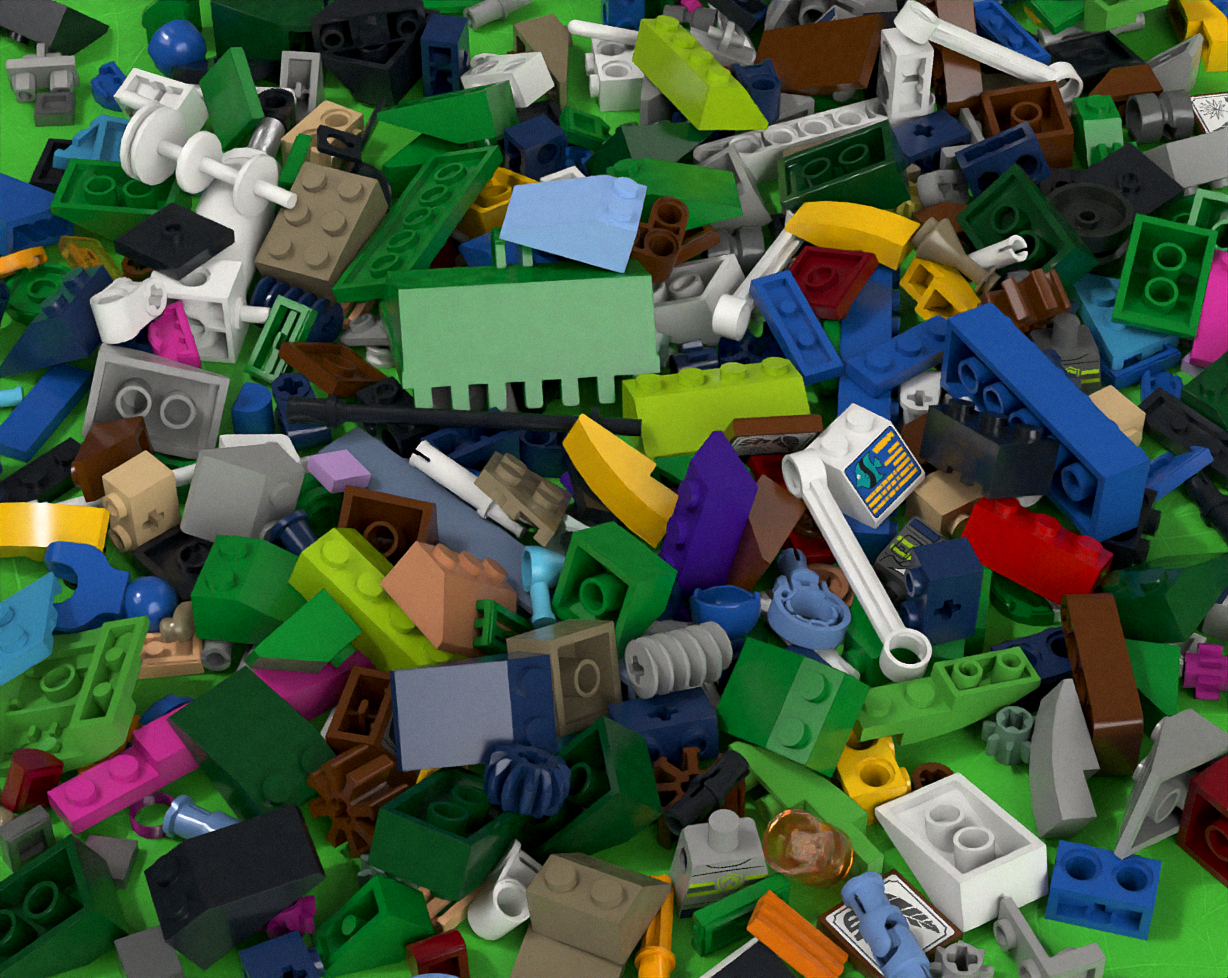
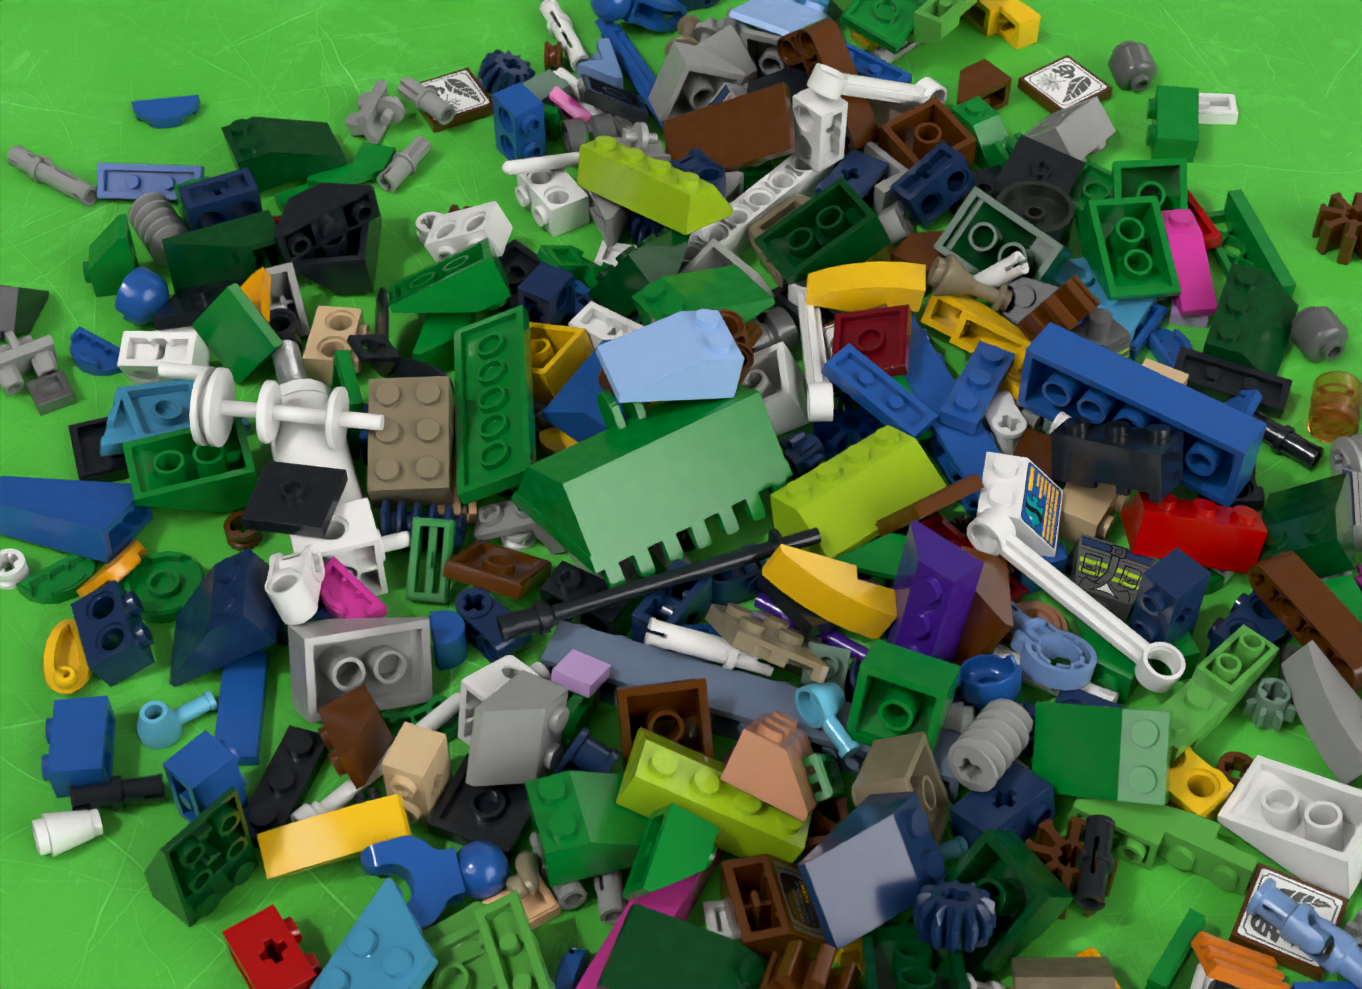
camera: 25 degrees left, 5 degrees up
(87, 254) = (194, 540): clear yellow tile -> none
(269, 70) = (258, 290): none -> light orange tile
(444, 54) = (402, 231): dark blue brick -> none
(553, 40) = (475, 185): dark tan slope -> none
(715, 861) = (1143, 915): light grey torso -> none
(807, 849) = (1203, 879): clear orange wheel -> none
(1093, 56) = (934, 61): black plate -> none
(1165, 117) = (1021, 101): dark grey wheel -> none
(1179, 65) = (1001, 50): light grey slope -> none

